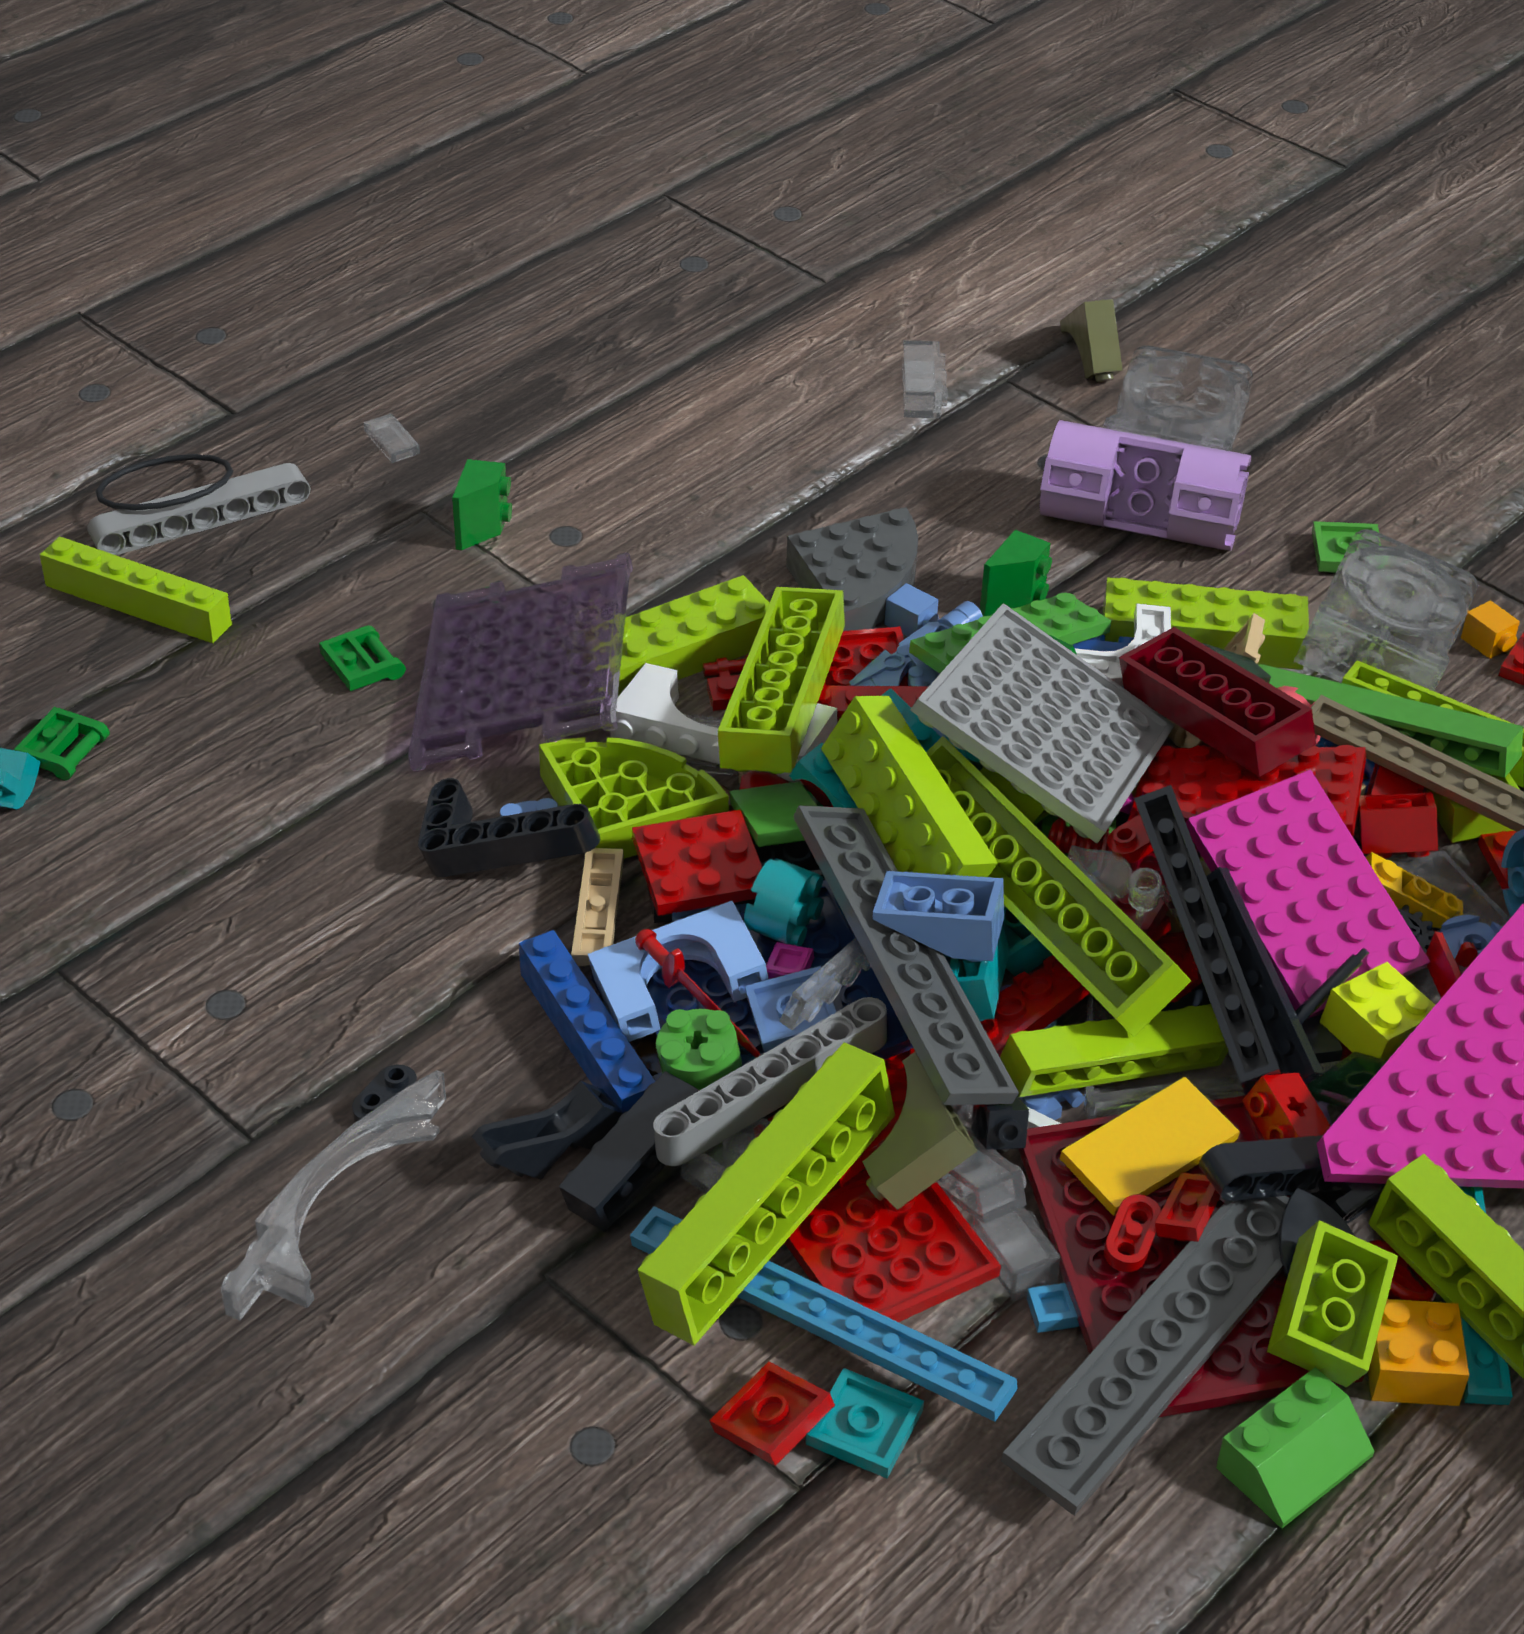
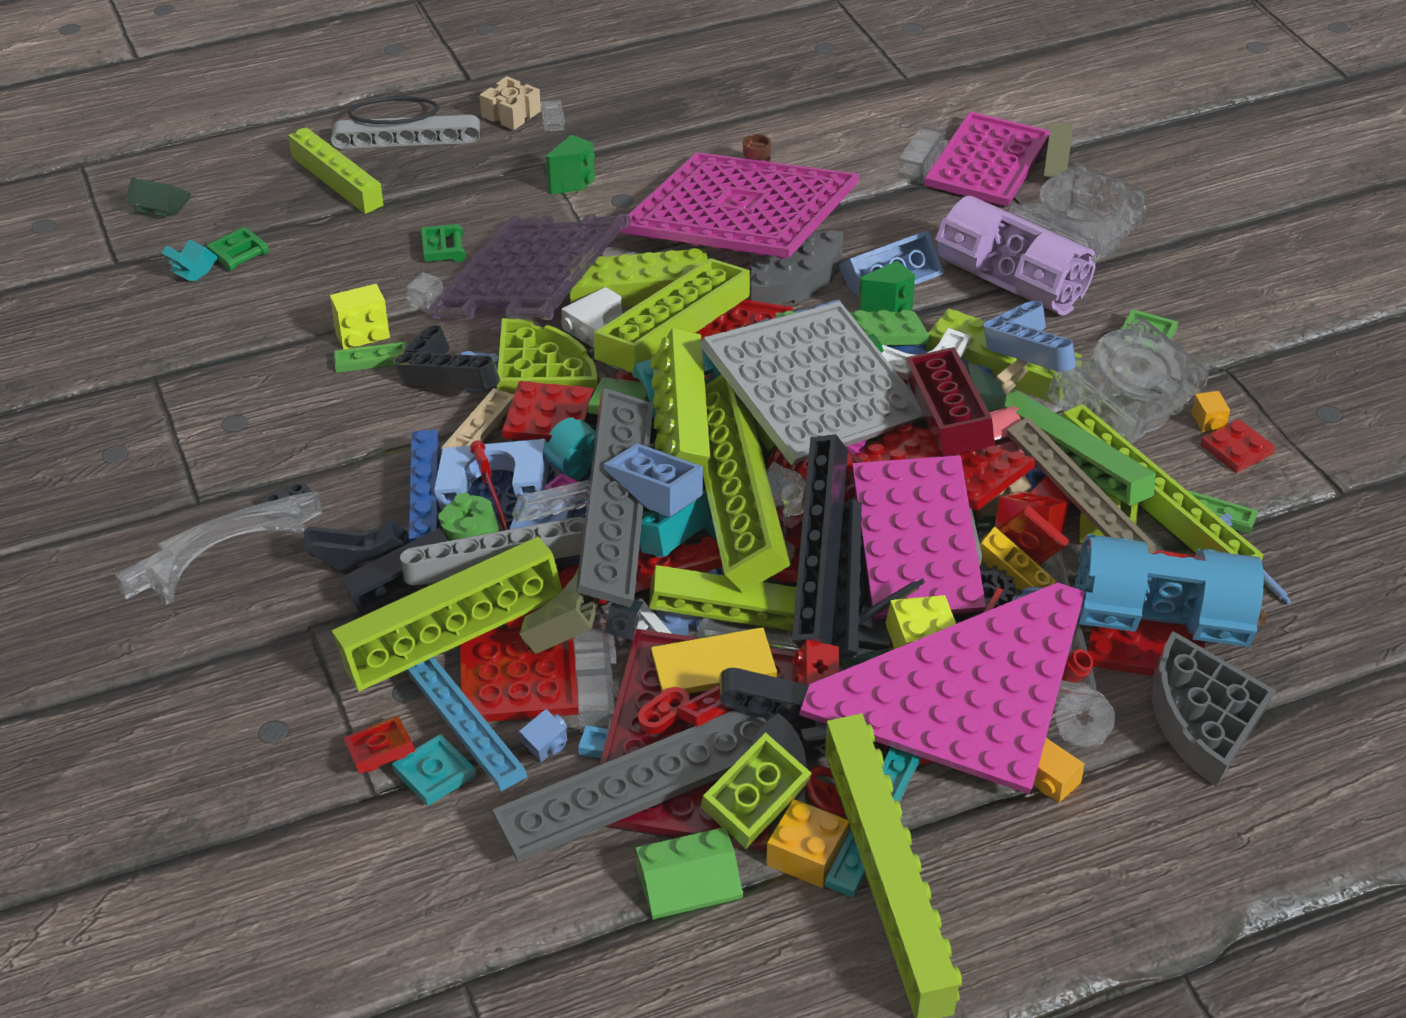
camera: 25 degrees right, 0 degrees up
(326, 795) = (360, 316): none -> neon yellow brick
(329, 433) = (510, 103): none -> tan brick
(365, 851) = (367, 357): none -> bright green tile
(387, 735) = (423, 291): none -> clear brick
(691, 491) = (741, 204): none -> dark pink plate
(713, 428) = (757, 147): none -> copper wheel
(910, 609) = (806, 295): medium blue brick -> none
(966, 546) = (914, 252): none -> medium blue slope
(987, 1321) = (544, 735): none -> medium blue brick
(1005, 366) = (988, 158): none -> dark pink plate
(1227, 593) = (1021, 336): none -> medium blue beam
(1425, 848) = (1033, 535): none -> red tile

